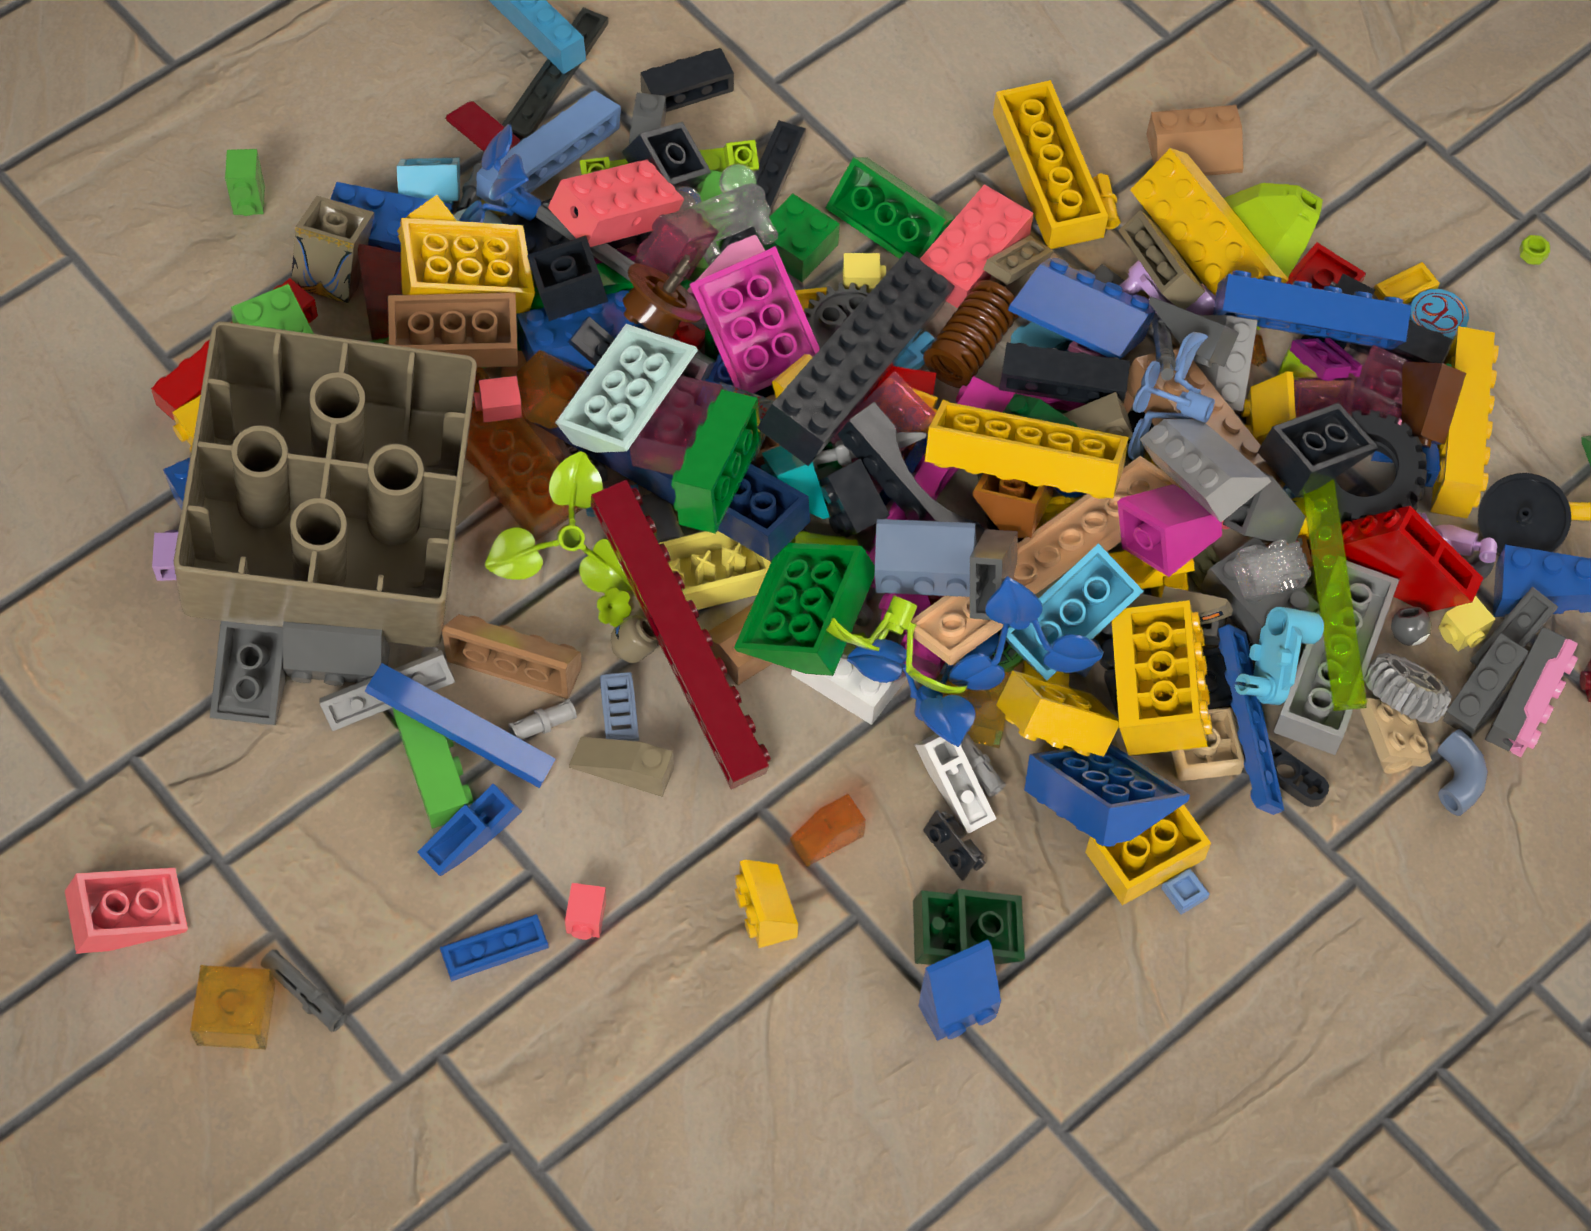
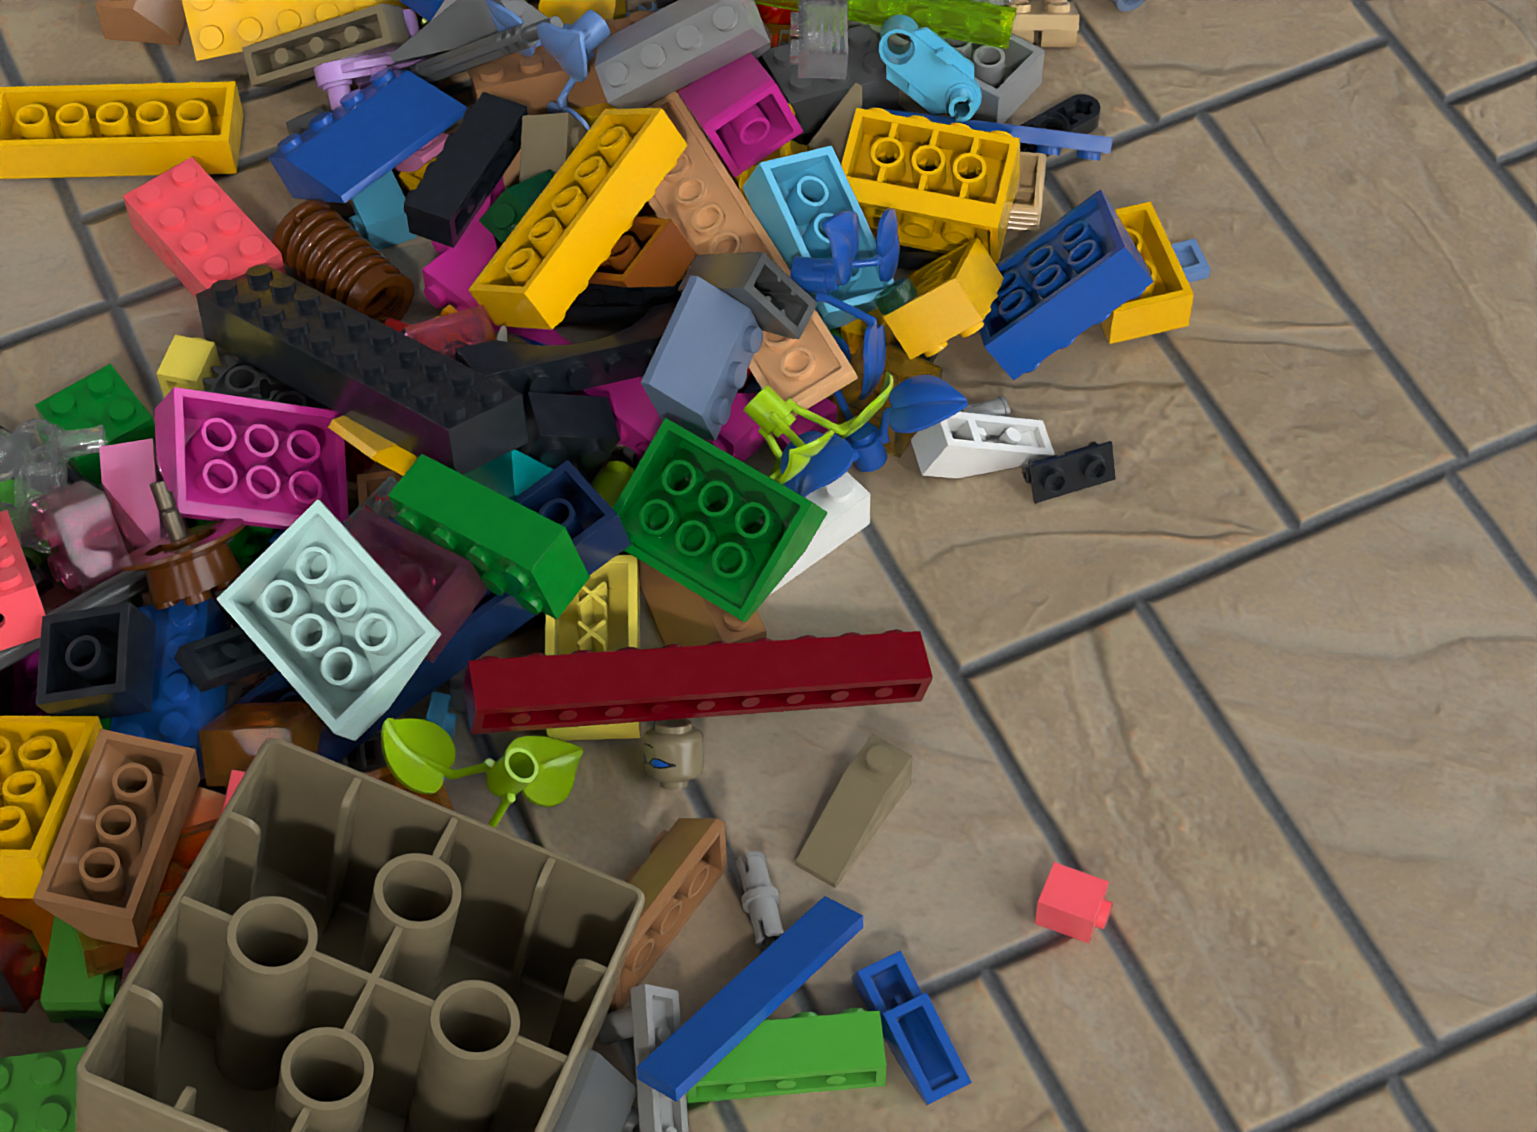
camera: 70 degrees left, 5 degrees down
(494, 947) = (1095, 1037): blue tile -> none
(613, 606) = (606, 774): lime plant -> none
(619, 687) = (765, 817): sand blue slope -> none
(766, 903) = (1115, 686): yellow slope -> none
(829, 830) = (1020, 594): clear orange slope -> none
(887, 209) = (107, 316): green slope -> none
(960, 920) = (1189, 483): dark green slope -> none
(960, 992) = (1290, 499): blue slope -> none
(1016, 261) = (257, 197): dark tan piece -> none
(1033, 673) = (895, 295): none -> clear green tile

